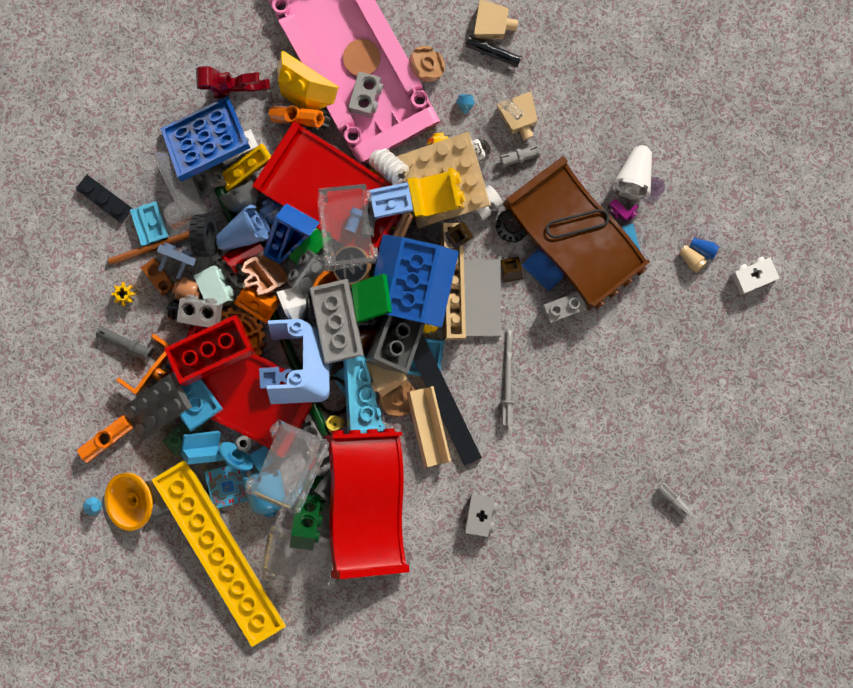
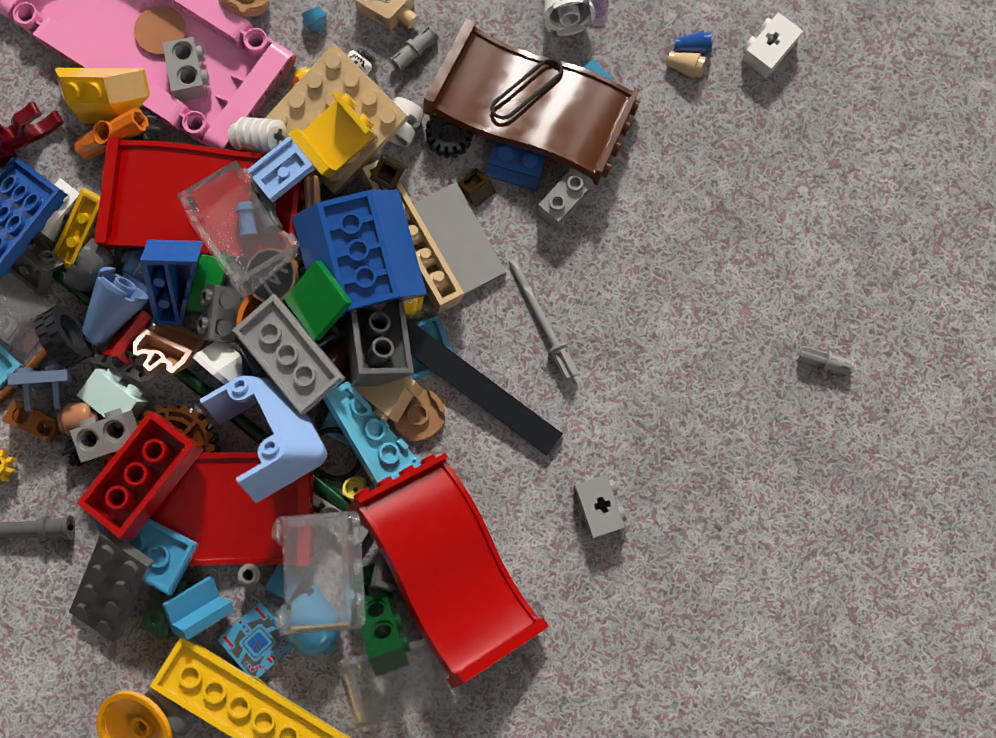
camera: 30 degrees left, 5 degrees down
(115, 432) = (56, 681): orange piece -> none
(153, 372) = (85, 546): orange piece -> none
(234, 457) = (247, 598): dark azure dish -> none
(259, 306) = (181, 389): orange panel -> none
(272, 376) = (239, 466): medium blue plate -> none
(428, 427) = (476, 429): tan panel -> none
(618, 210) = (571, 51): magenta bracket -> none

